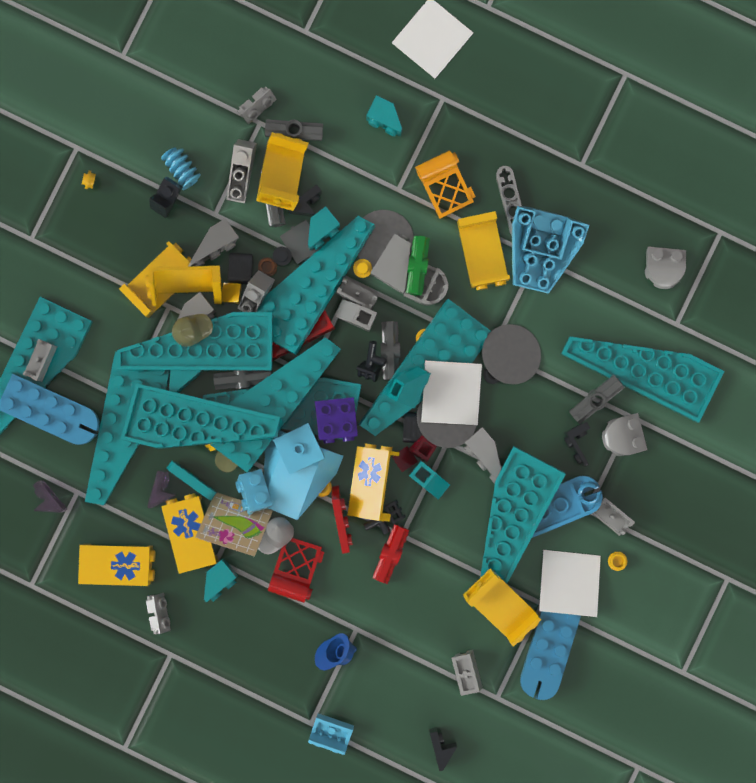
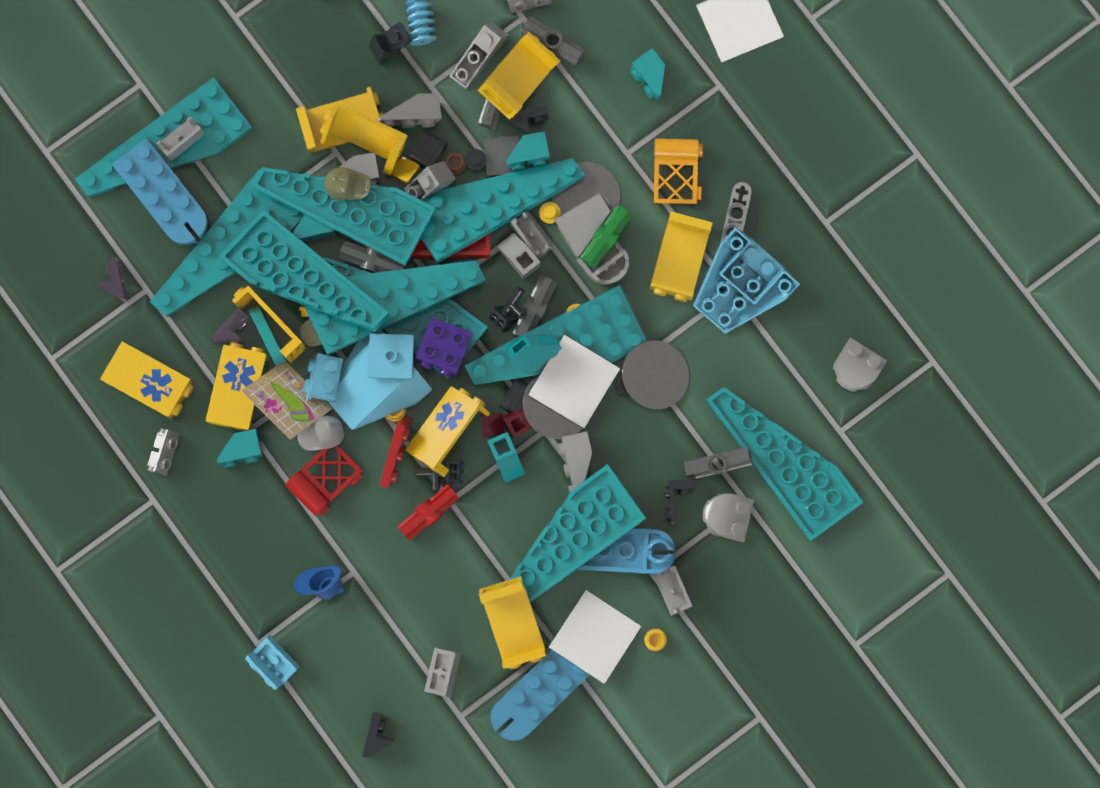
camera: 25 degrees right, 5 degrees down
(219, 477) = (295, 346): none -> yellow panel

